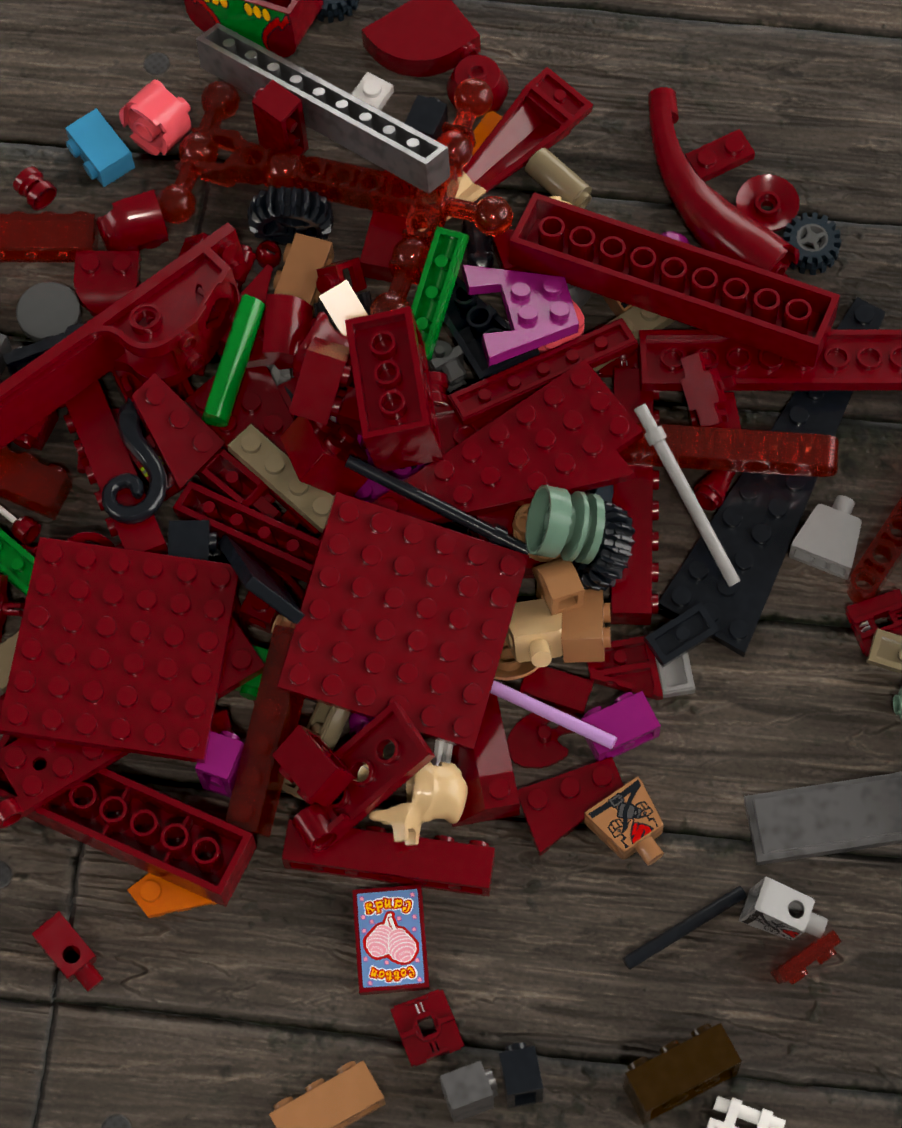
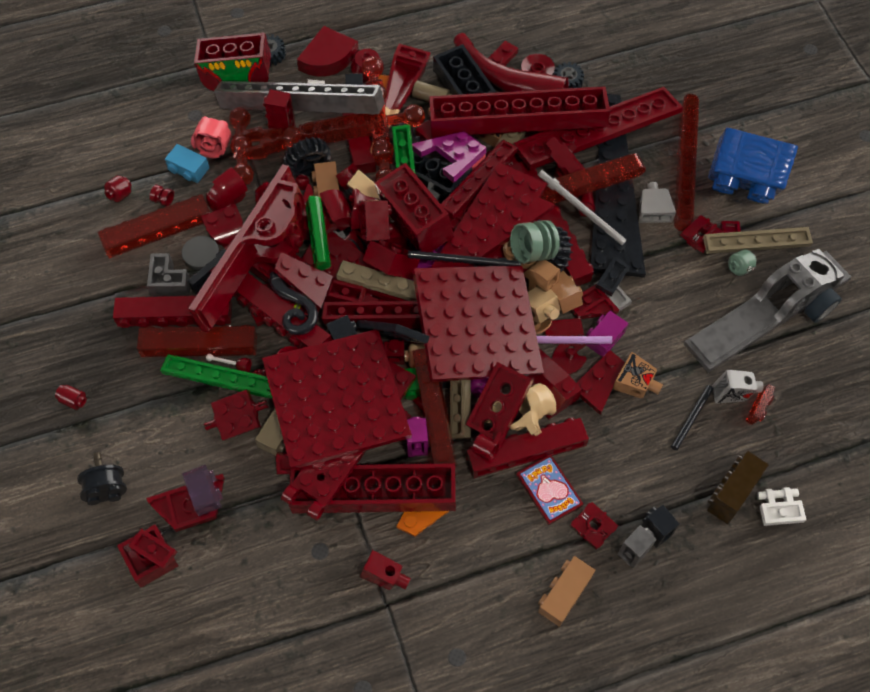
camera: 30 degrees left, 5 degrees down
(312, 766) = (470, 414): dark red brick -> none
(624, 169) = (460, 72): none -> black brick

